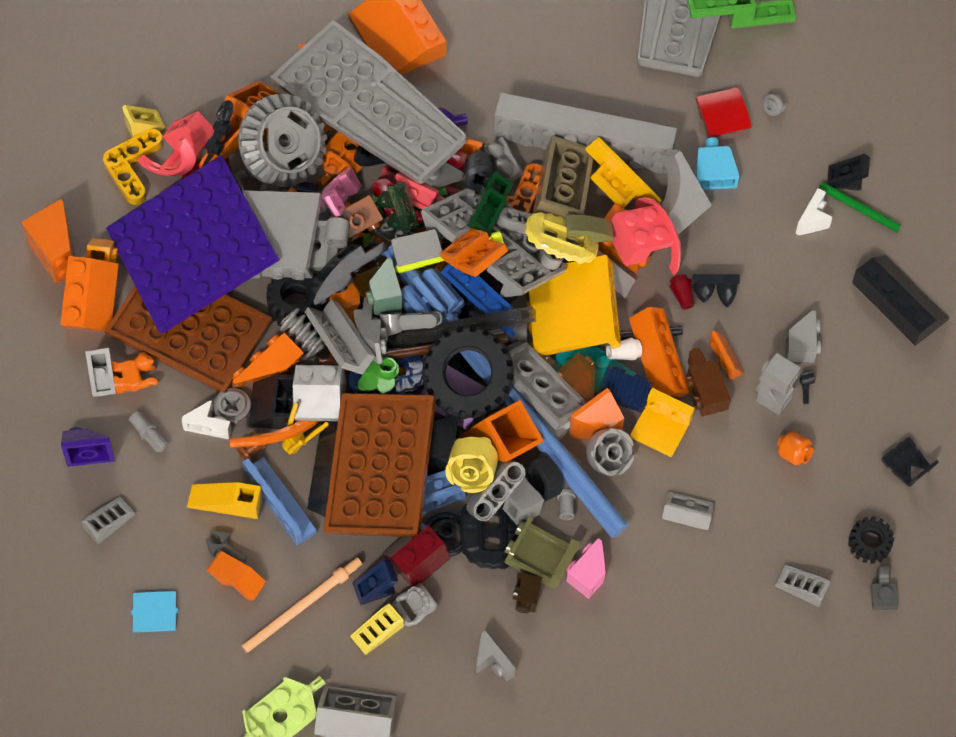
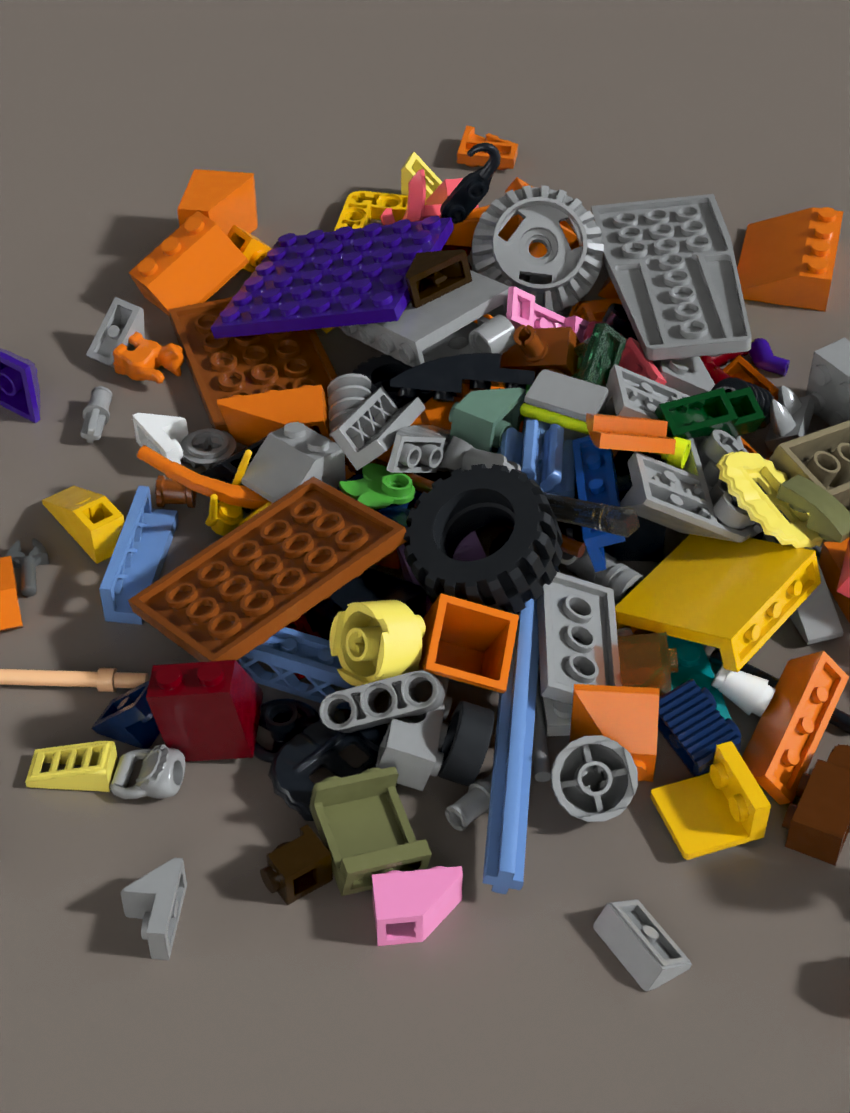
camera: 45 degrees right, 20 degrees down
(141, 58) = (507, 149): none -> orange wing
(271, 212) = (436, 275): none -> dark brown slope

